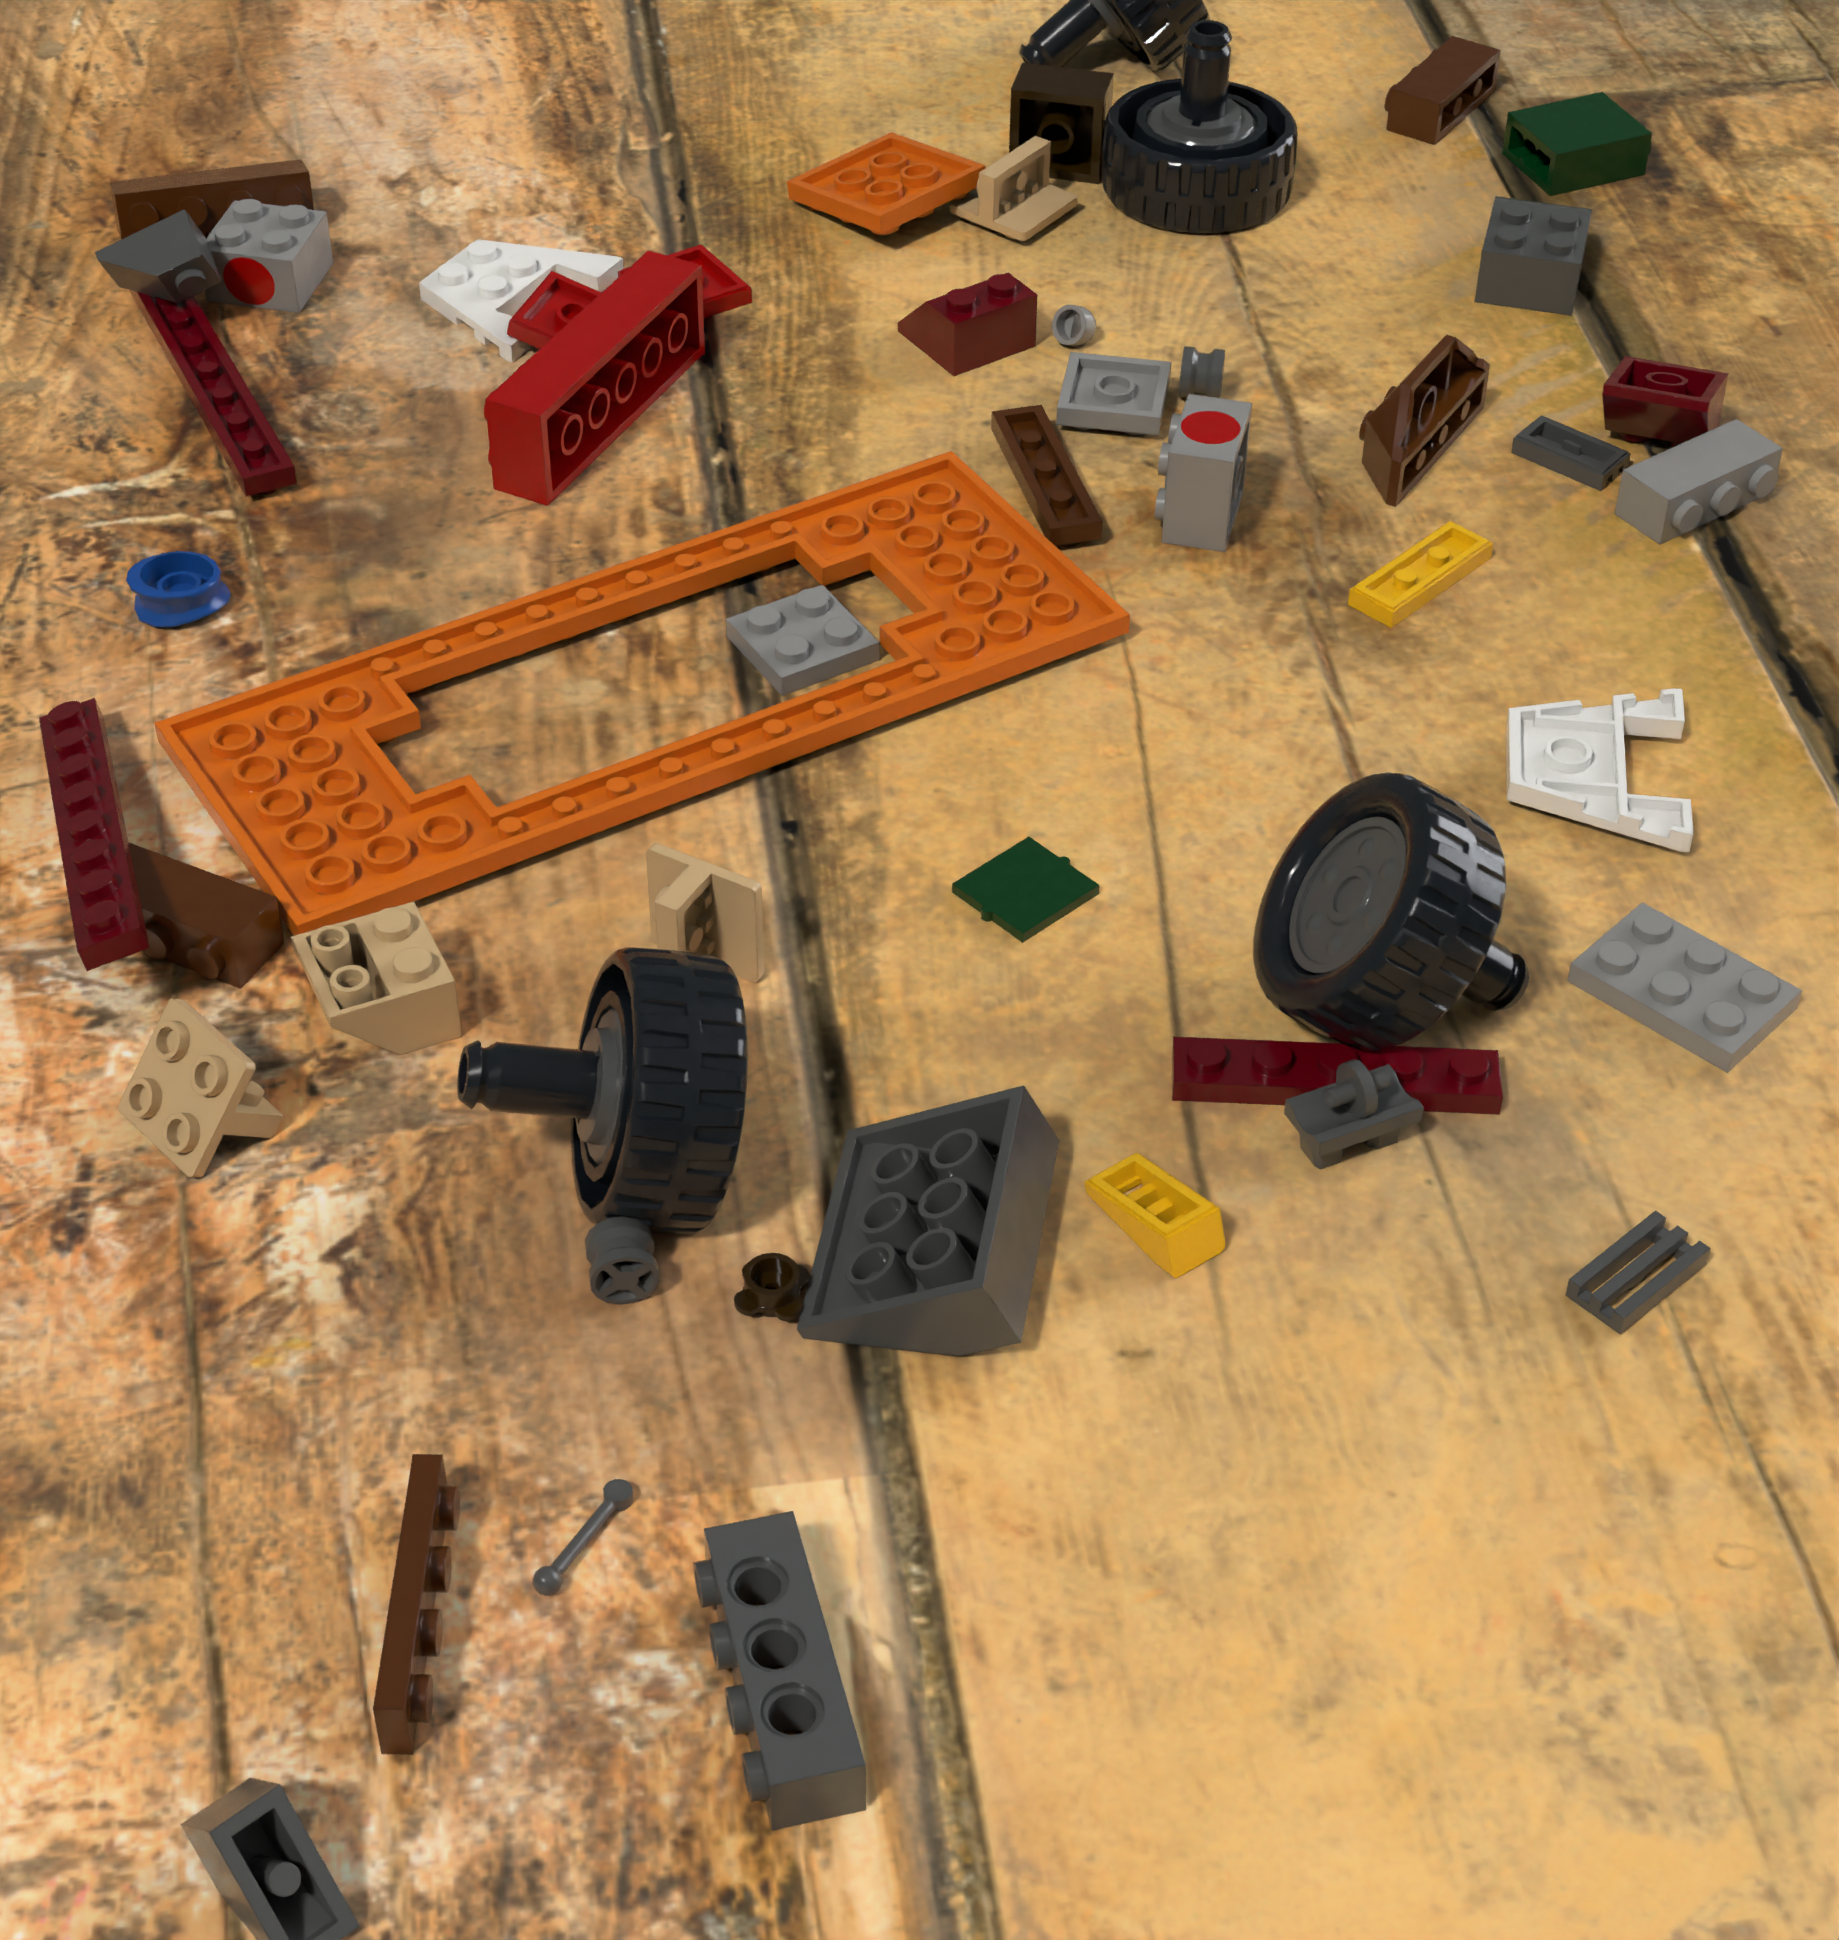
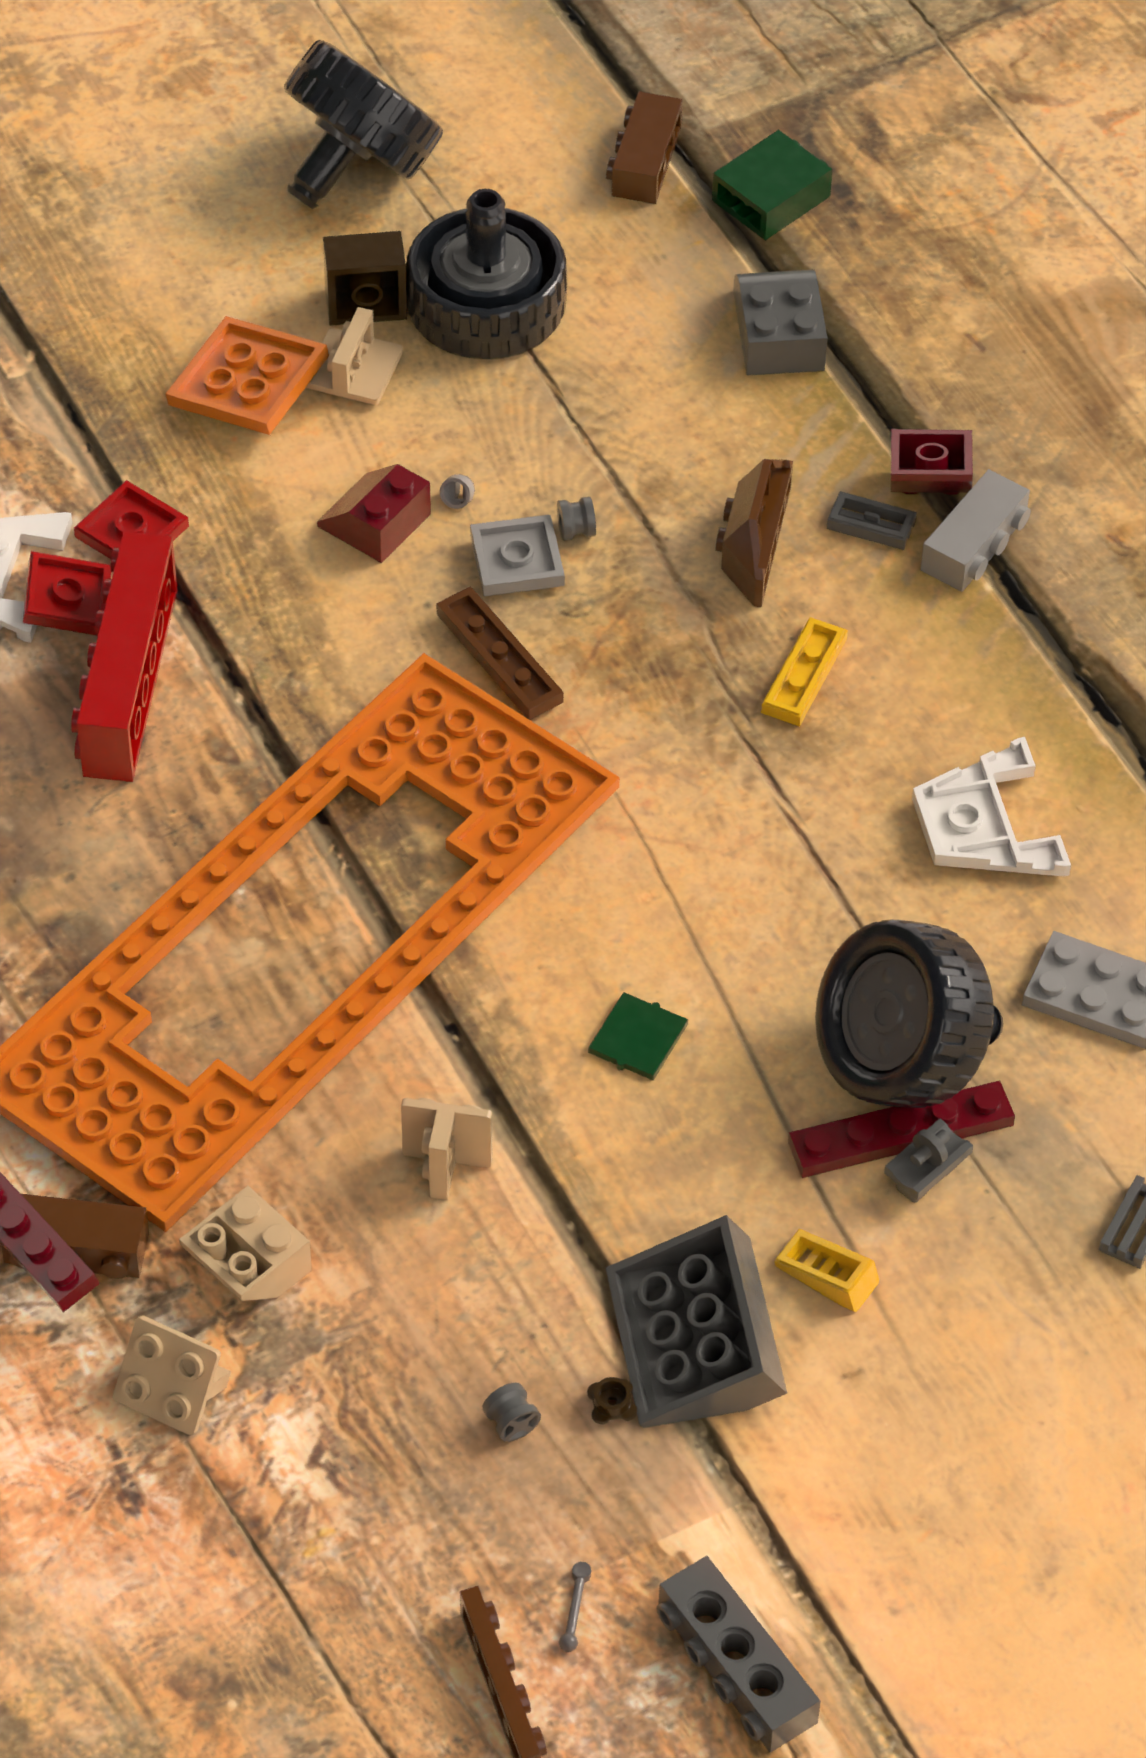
camera: 20 degrees left, 10 degrees up
(646, 1092) = (487, 1292): black wheel -> none
(802, 639) = (387, 860): light grey plate -> none
(1203, 472) = (624, 629): light grey brick -> none

